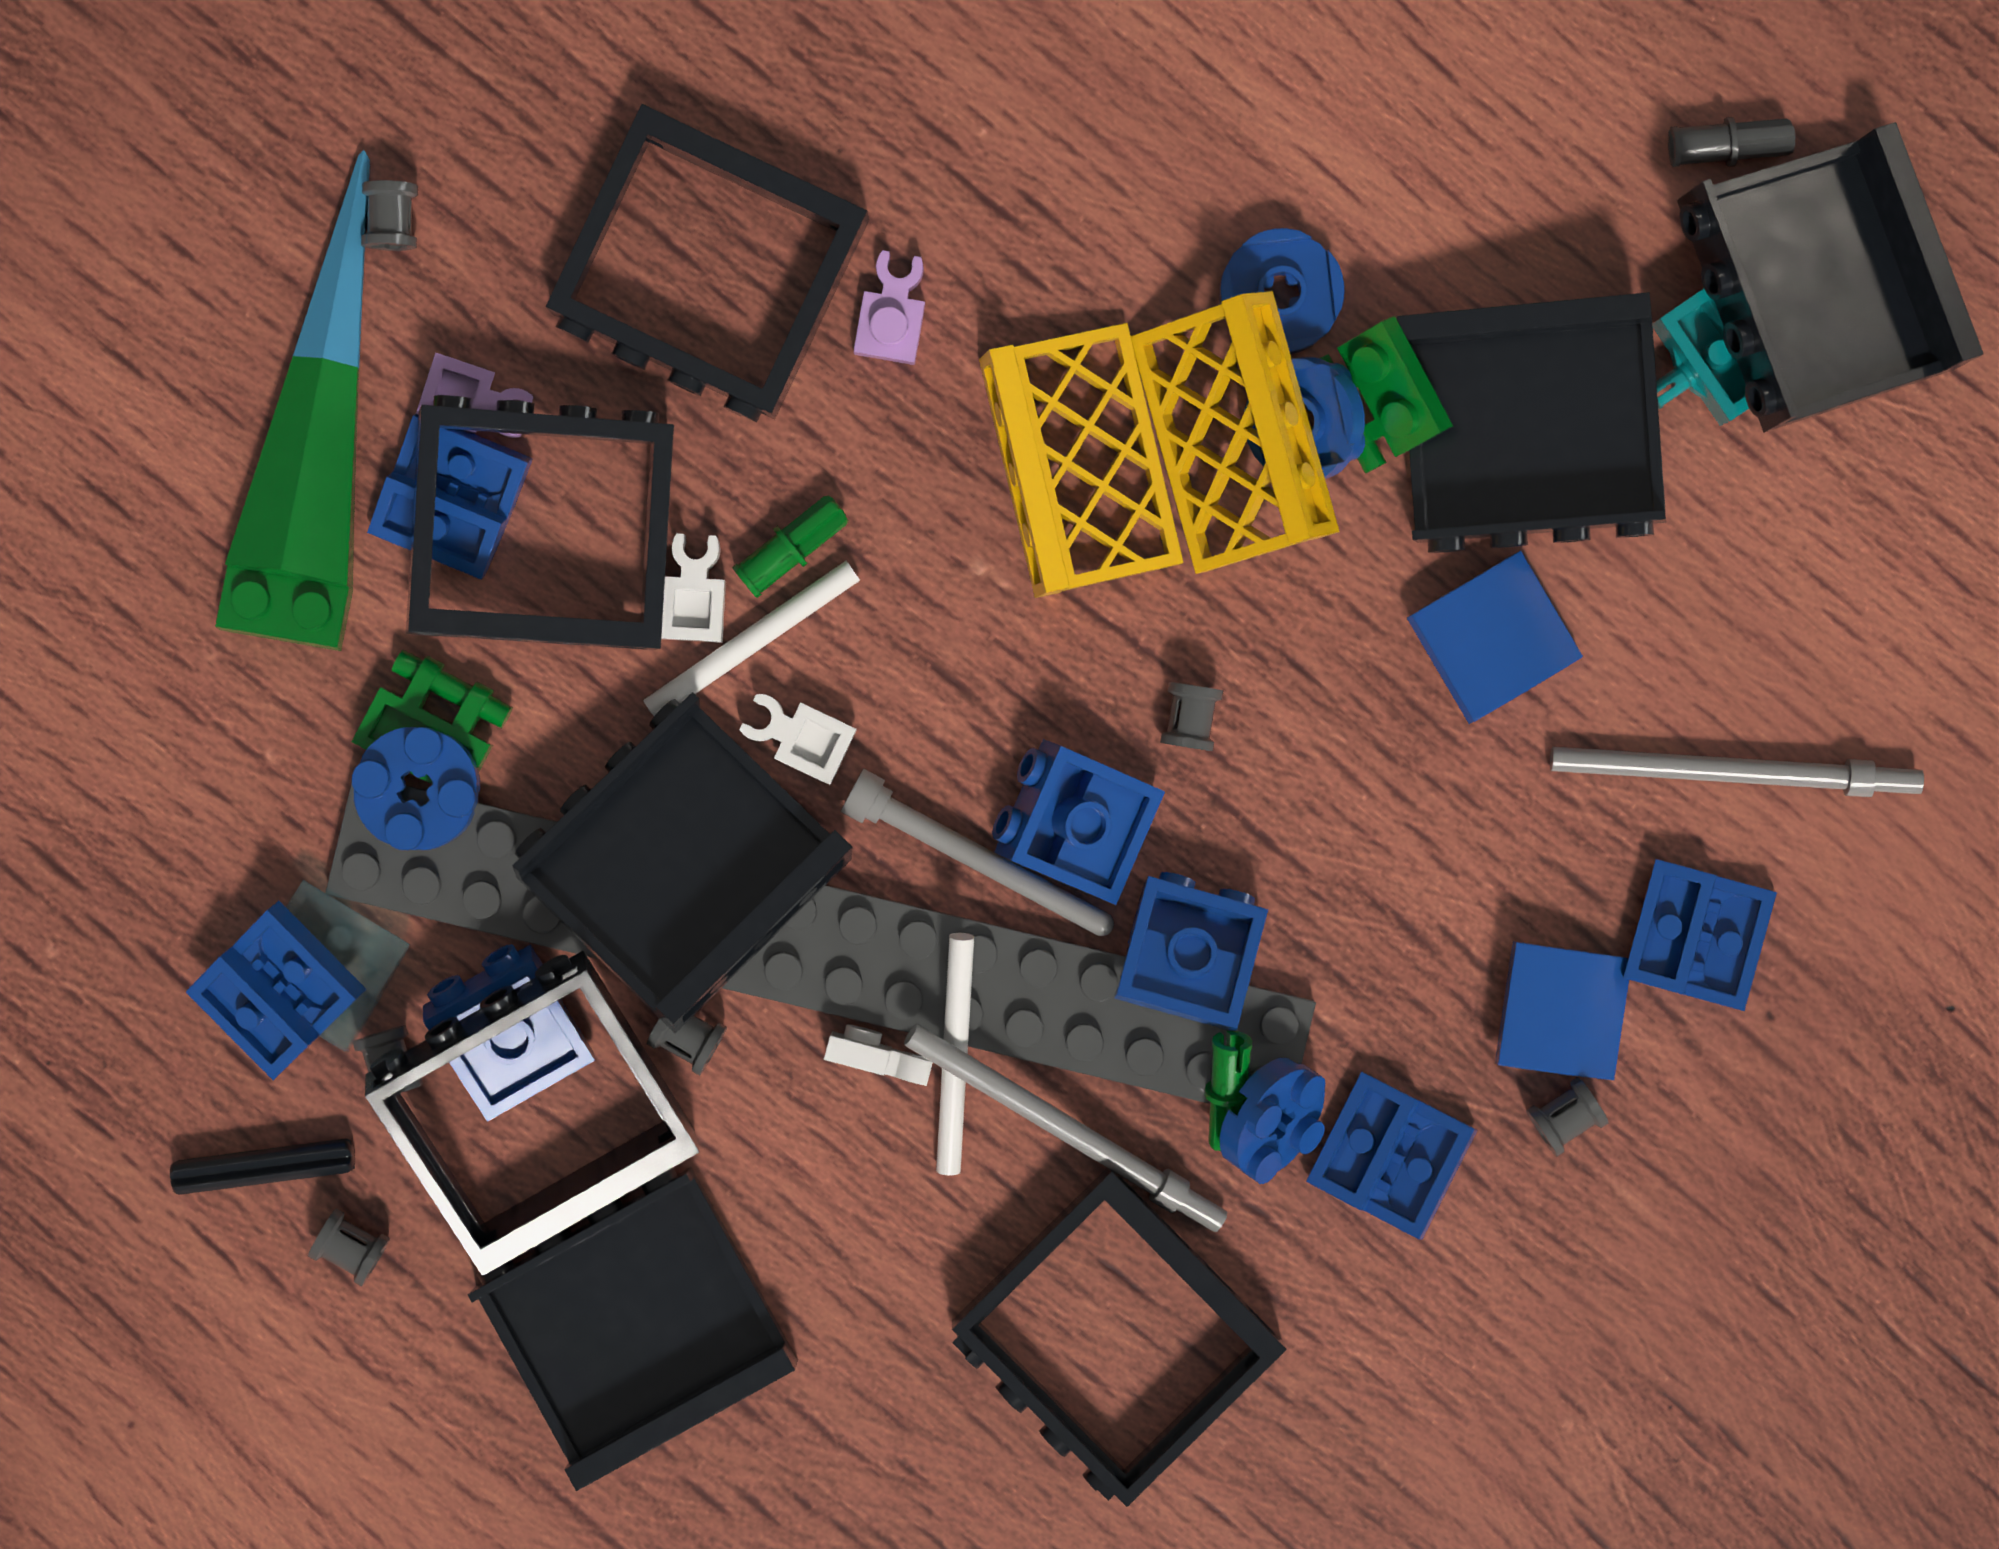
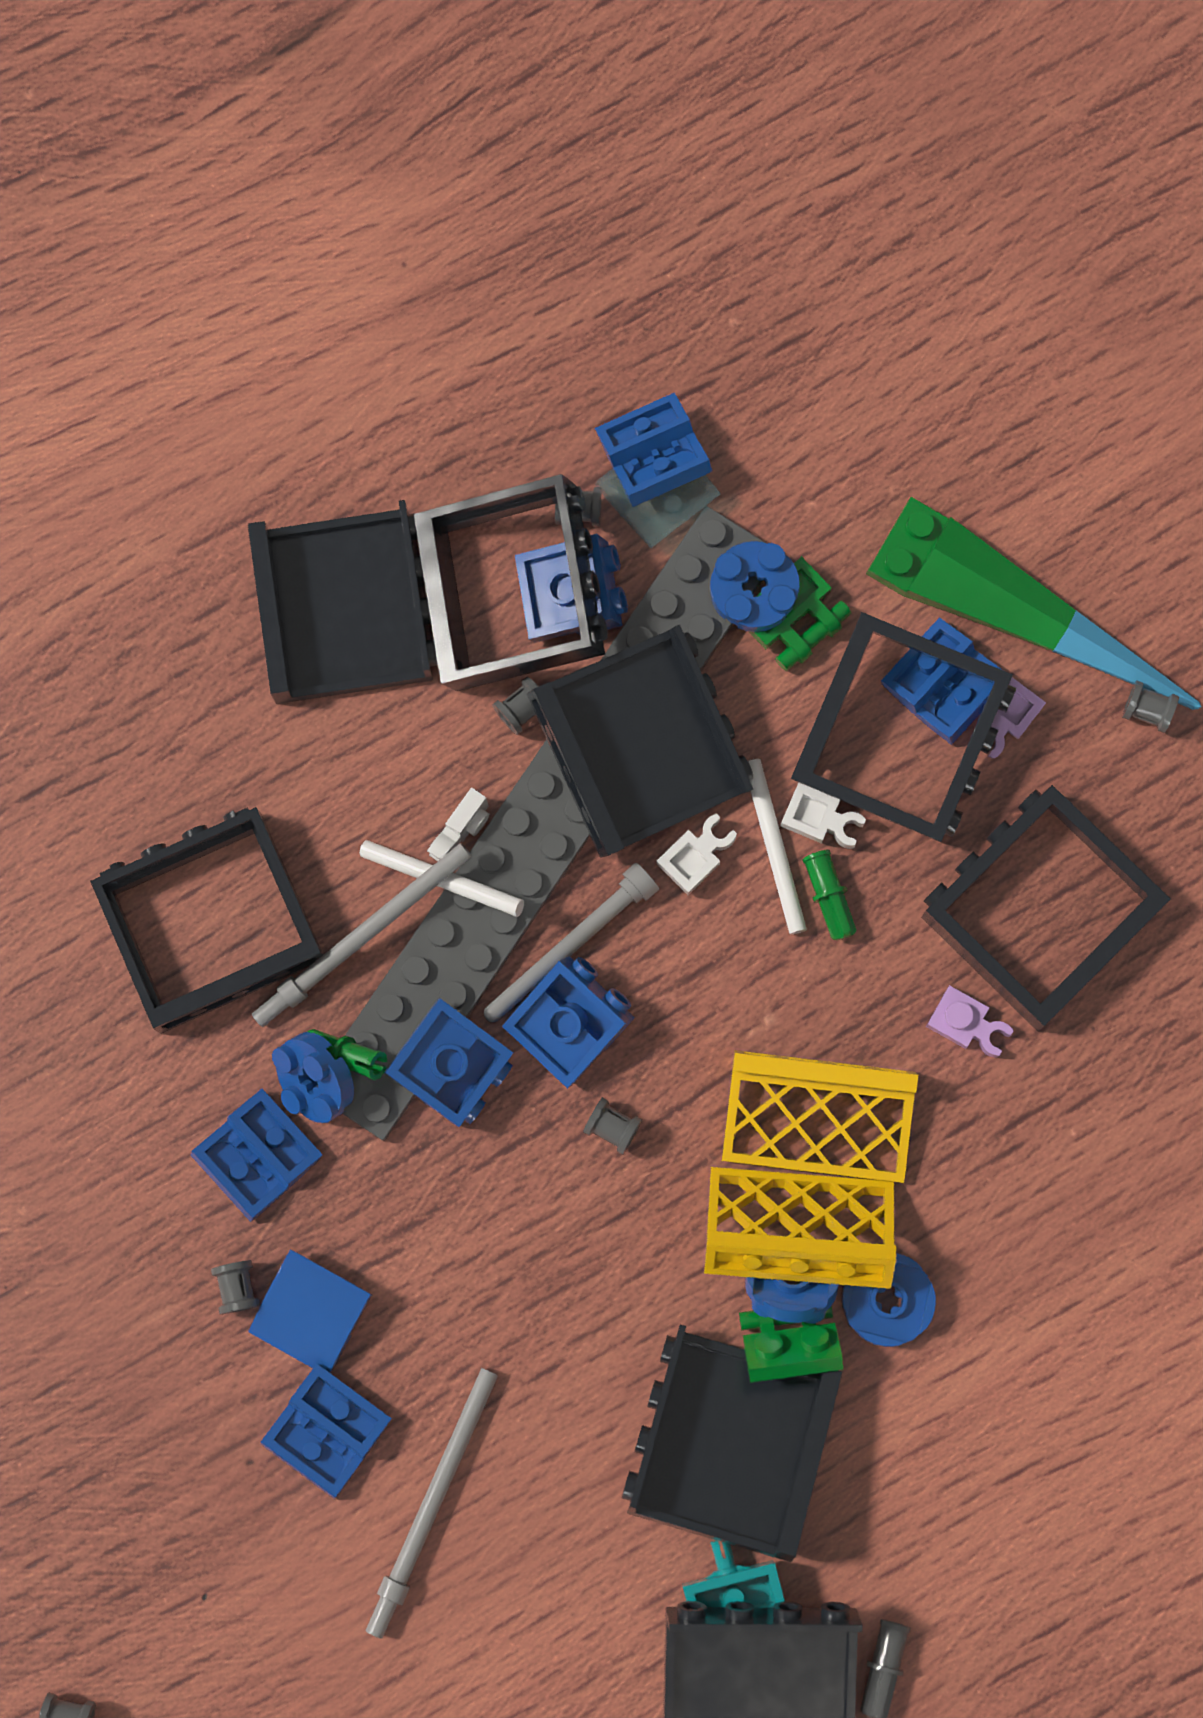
camera: 110 degrees right, 10 degrees down
(262, 1166) = (540, 403): black axle -> none
(348, 1247) = (466, 438): dark grey bush -> none
(1494, 637) = (590, 1361): blue slope -> none

